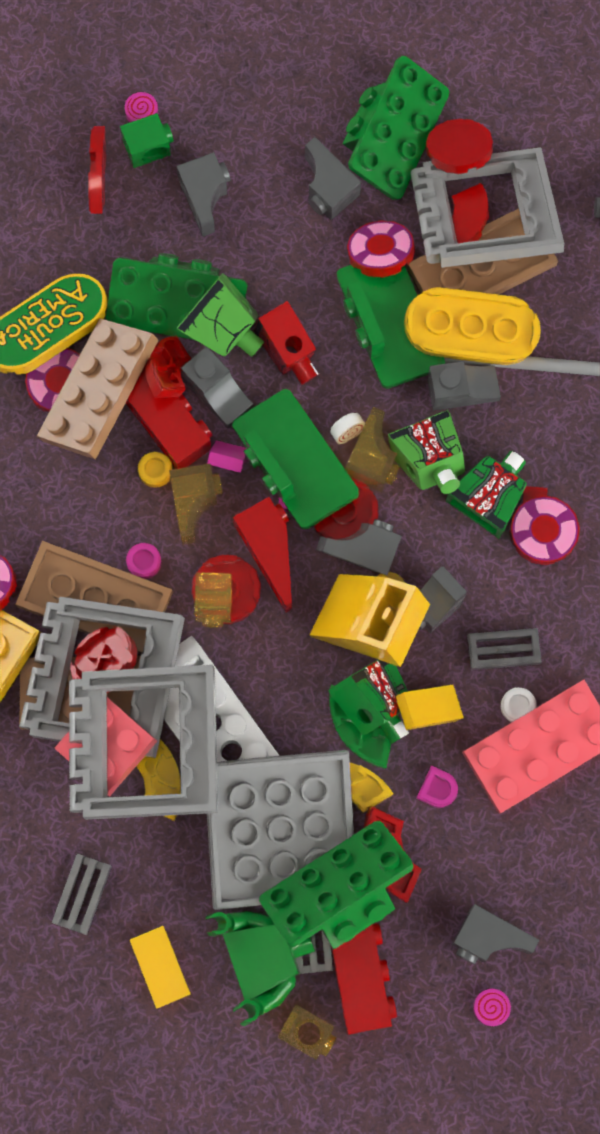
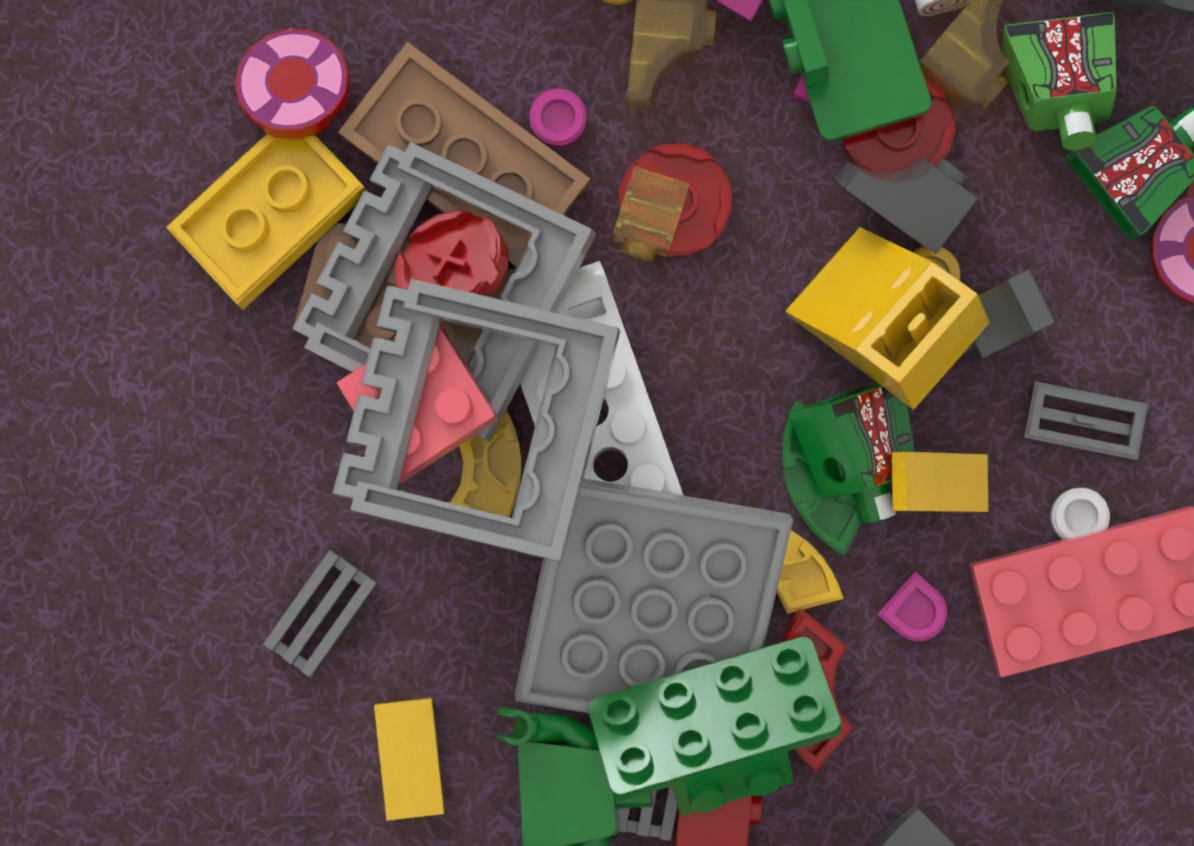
camera: 20 degrees right, 10 degrees up
(266, 538) = (762, 139): red slope -> none

